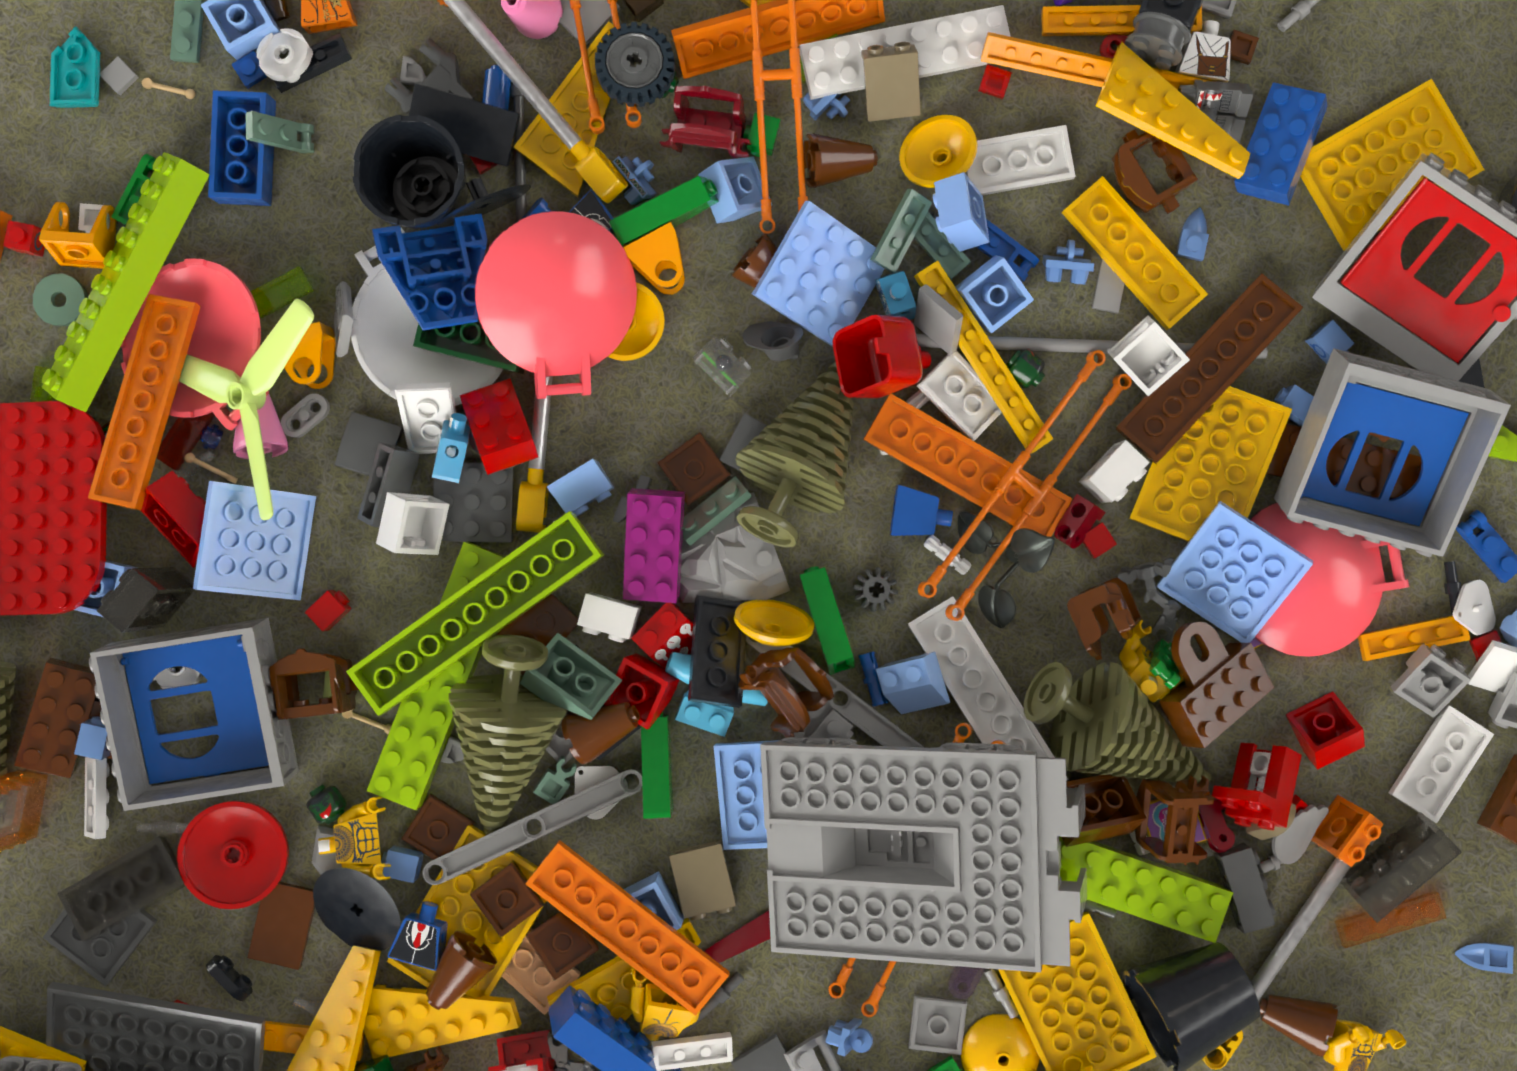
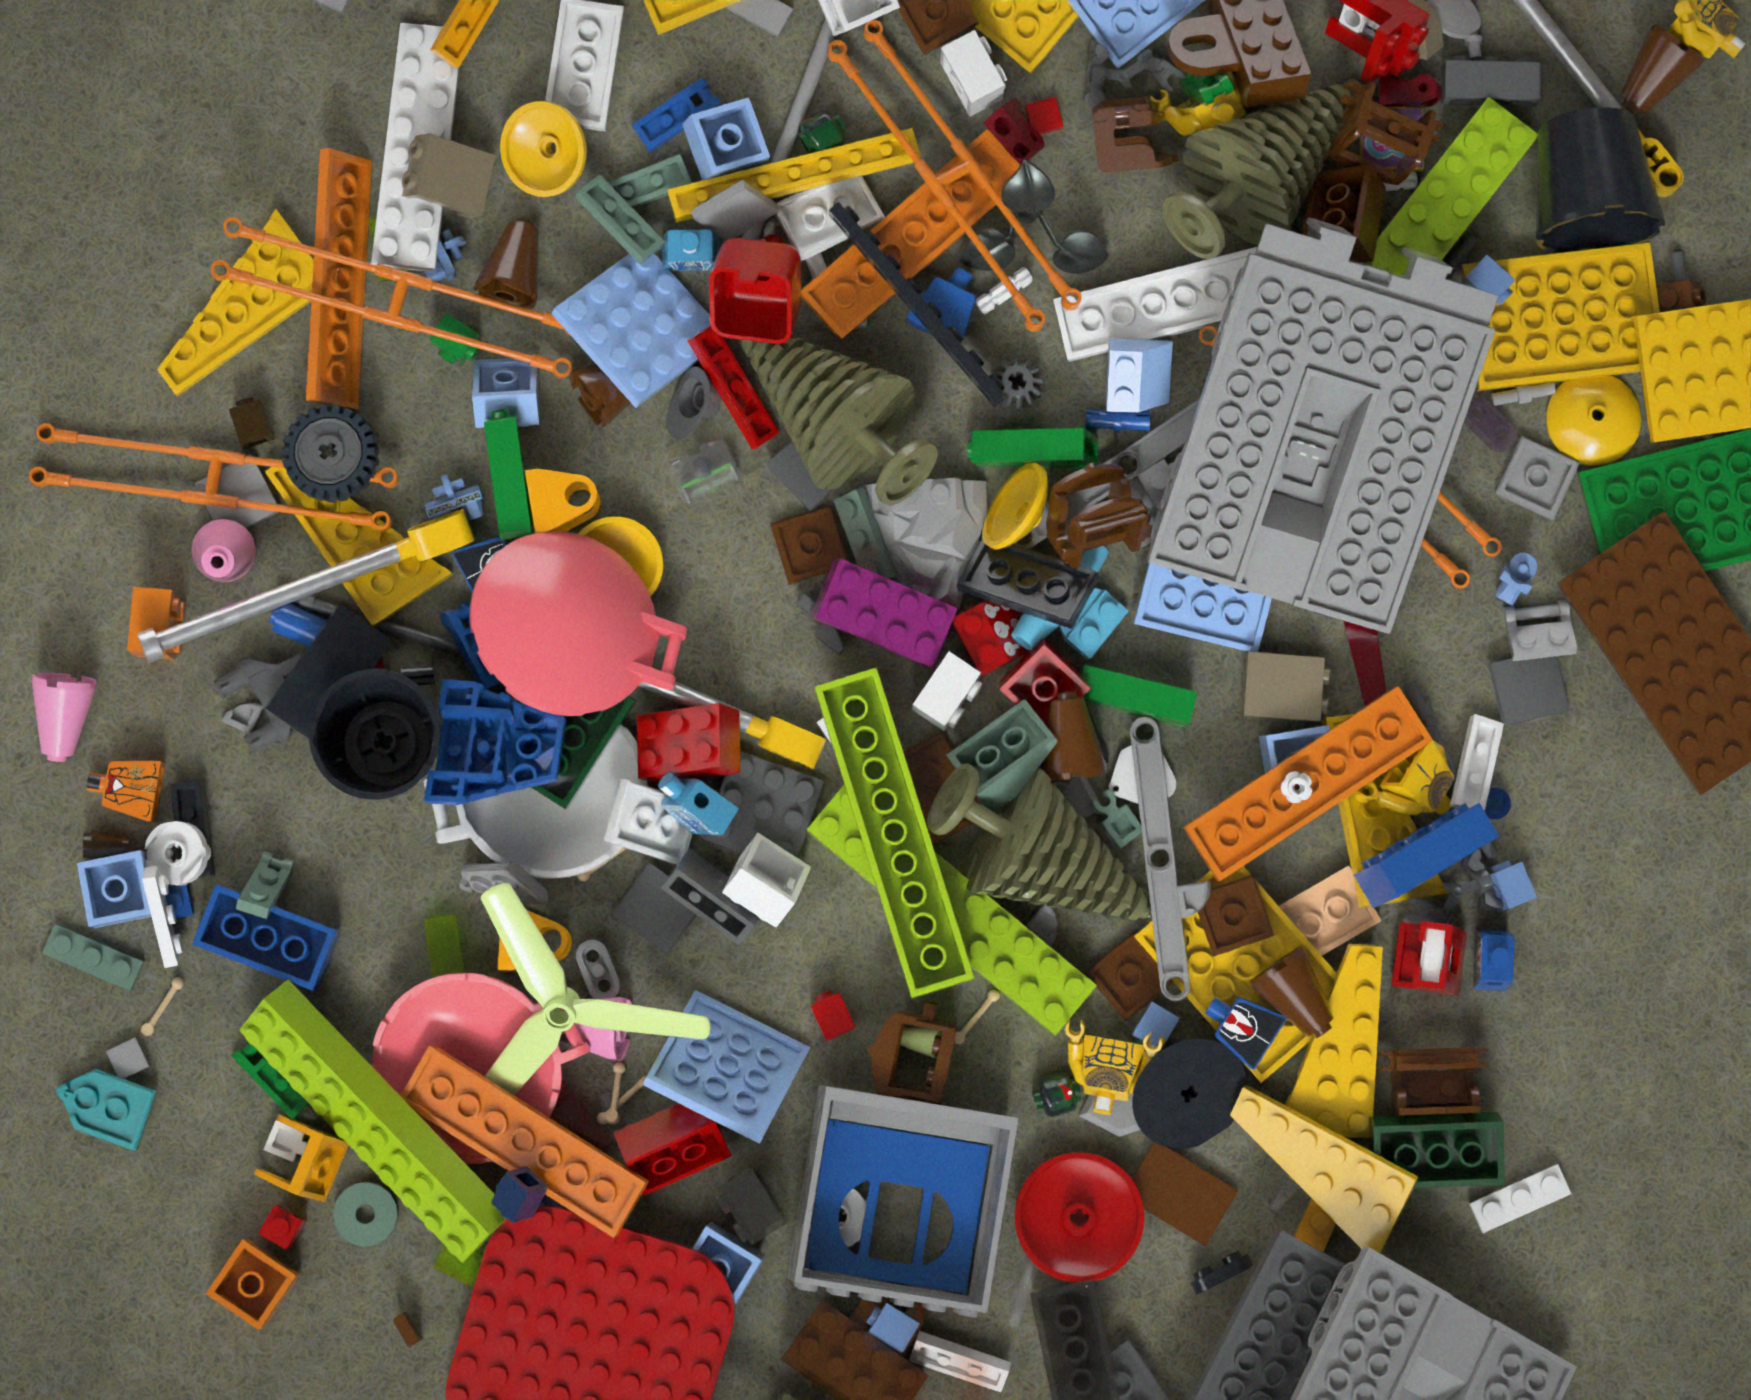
camera: 70 degrees left, 5 degrees down
(96, 412) = (519, 1194): none -> dark blue brick
(191, 465) = (612, 1115): none -> tan hinge
(211, 437) = (586, 1087): clear blue plate -> none
(229, 59) = (162, 916): none -> white plate
(508, 864) = (1192, 897): none -> light grey tile
(561, 944) = (1304, 872): reddish brown tile -> none
(581, 487) = (789, 675): light blue slope -> none
(621, 915) = (1302, 780): none -> white plate
(706, 126) = (426, 398): dark red animal -> none
(796, 366) = (733, 387): none -> red plate
(917, 481) = (909, 293): none -> black plate
(960, 212) = (622, 145): light blue brick -> none
(994, 81) = (483, 60): red tile -> none
(1078, 266) = (726, 35): medium blue hips -> none
(1083, 941) = (1490, 278): none -> medium blue brick

